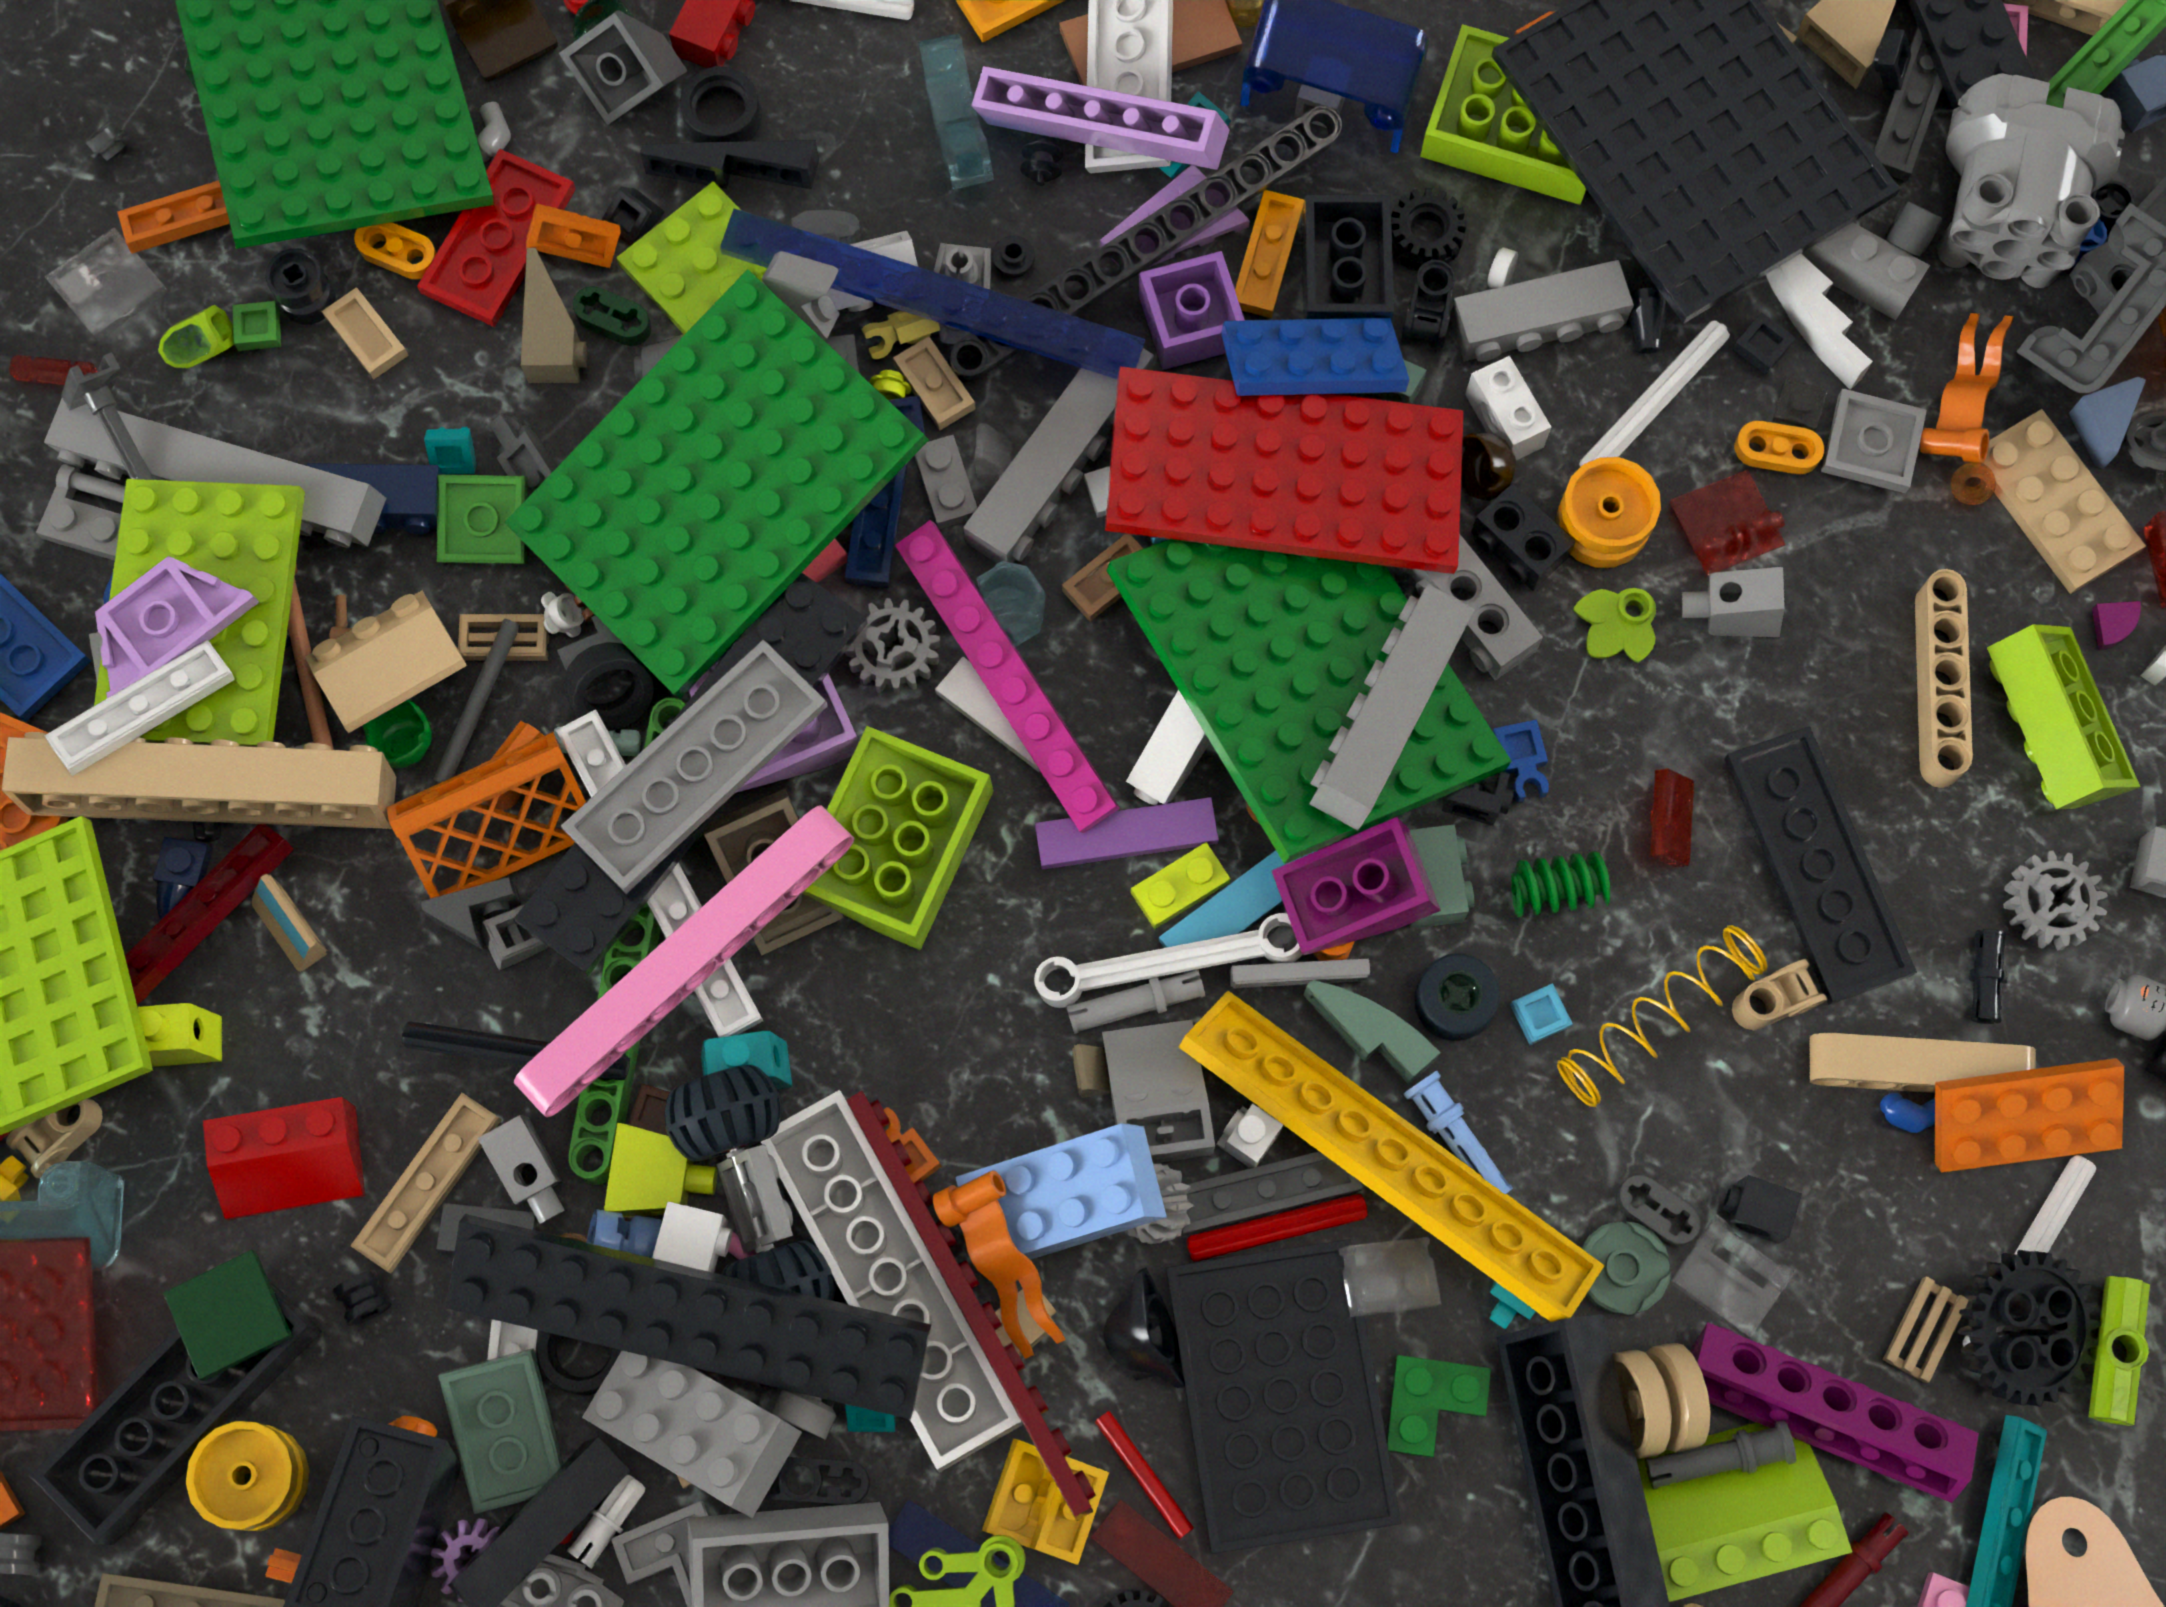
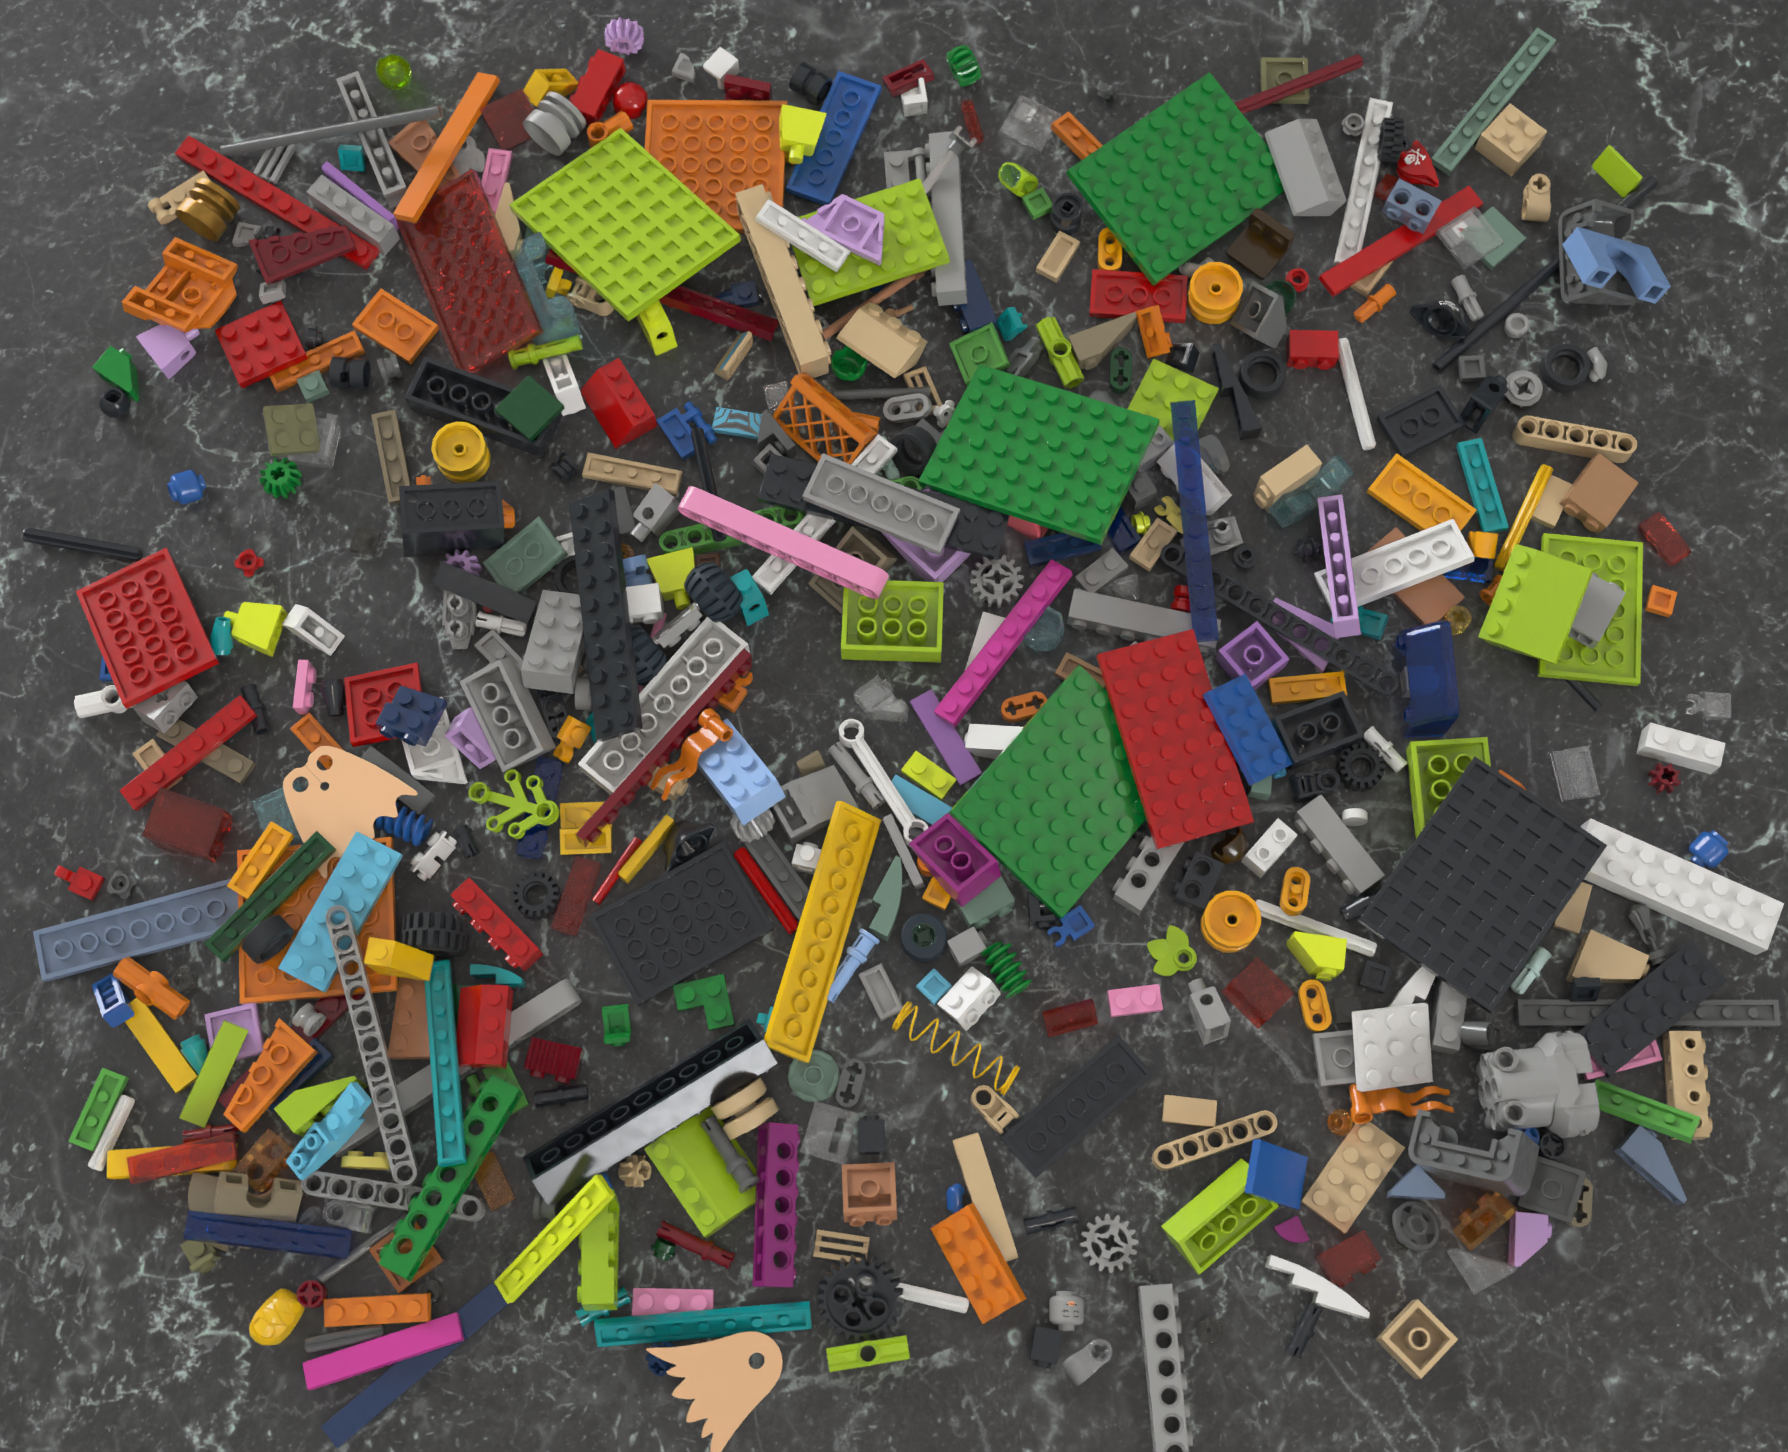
camera: 70 degrees right, 0 degrees up
(117, 1272) = (534, 354): none -> lime pin
(190, 1239) = (564, 383): none -> white slope
(388, 1070) = (679, 432): none -> blue plate
(395, 880) = (774, 394): none -> clear plate
(416, 964) = (737, 423): none -> medium azure tile
(512, 393) = (1064, 364): none -> lime piece
(521, 668) = (908, 406): none -> light grey plate
(551, 117) = (1214, 292): none -> light orange wheel
(803, 287) = (1163, 452): light grey slope -> none
(870, 1465) = (571, 735): none -> light orange plate
(918, 137) = (1286, 477): none -> tan brick
(1024, 913) = (880, 703): none -> clear slope
(1048, 375) = (1181, 600): none -> red wheel
(1114, 687) = (1022, 701): none -> orange beam
(1129, 1406) = (646, 849): none -> yellow tile
(1389, 1277) = (761, 954): clear plate -> none
(1390, 948) = (936, 895): none -> light orange plate
(1391, 708) = (1059, 837): light grey brick -> none
(1424, 1573) = (617, 1024): none -> green bracket
(1434, 176) = (1386, 750): none -> white pin
(1498, 932) = (967, 946): none -> light grey brick
(1520, 1103) = (881, 992): none -> light grey tile
(1582, 964) = (969, 998): none -> white bracket
(1594, 401) = (1294, 893): none -> light orange plate
(1675, 710) = (1135, 1000): none -> bright pink plate
(1713, 402) = (1319, 954): none -> neon yellow slope
(1856, 1248) = (869, 1193): none -> nougat plate
(1880, 698) = (1189, 1111): none -> tan tile
(1890, 358) = (1392, 1047): none -> white plate
(2036, 603) = (1276, 1174): none -> blue tile

